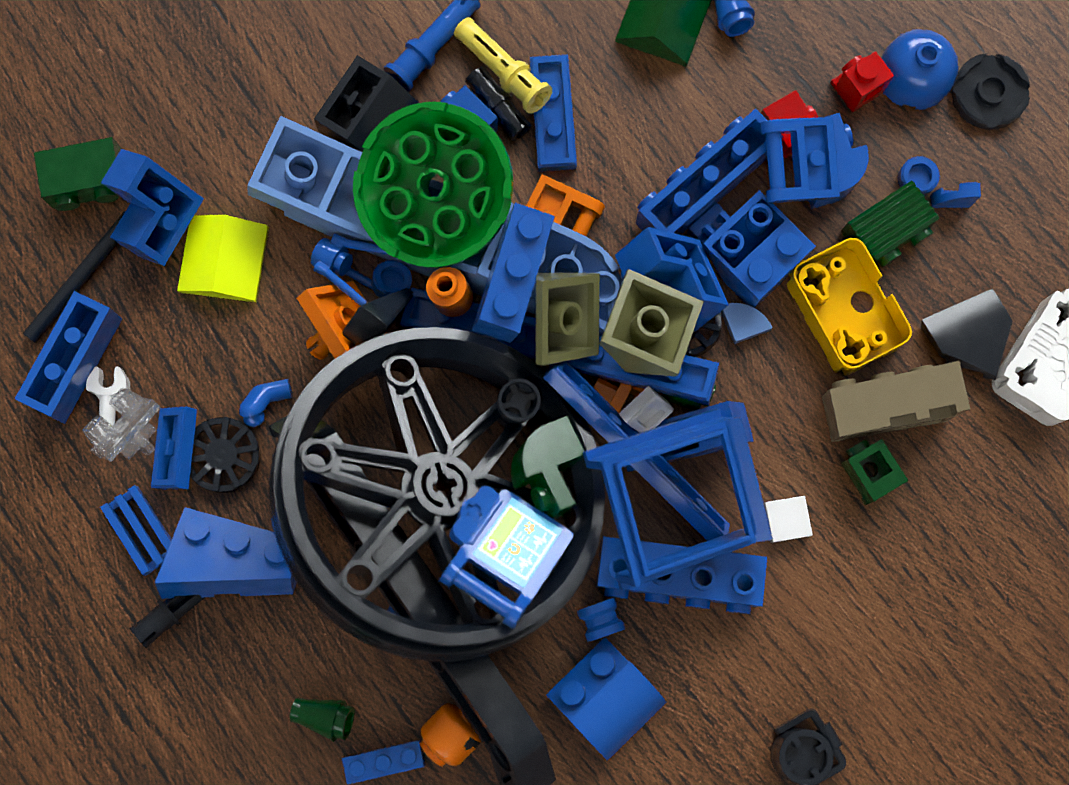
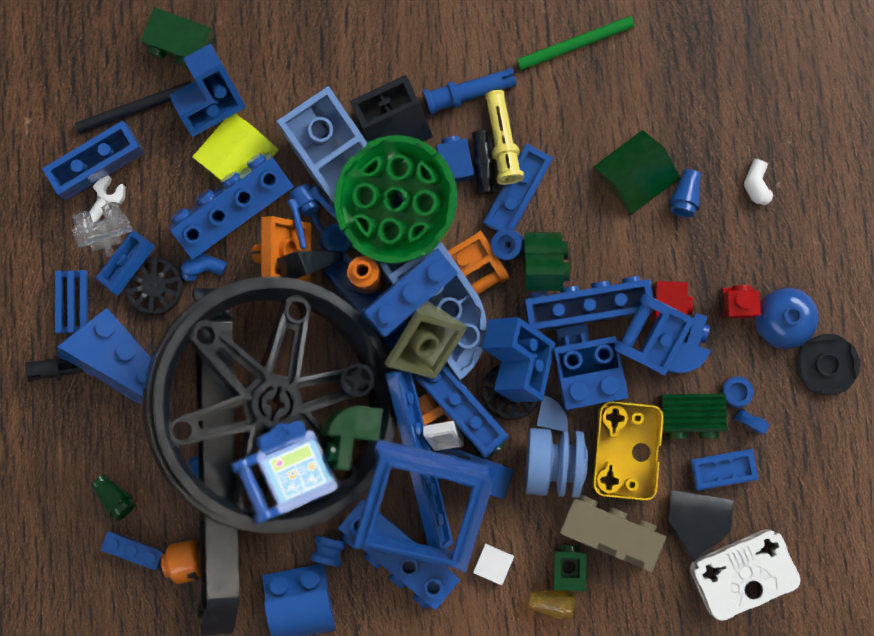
camera: 40 degrees right, 5 degrees up
(252, 312) = (229, 205): none -> blue brick
(571, 167) = (501, 241): none -> blue tile
(632, 161) = (544, 261): none -> dark green brick
(650, 326) = (476, 384): olive slope -> none
(784, 365) = (555, 463): none -> medium blue wheel
(881, 518) = (553, 603): none -> clear yellow cone
(960, 263) = (724, 469): none -> blue plate

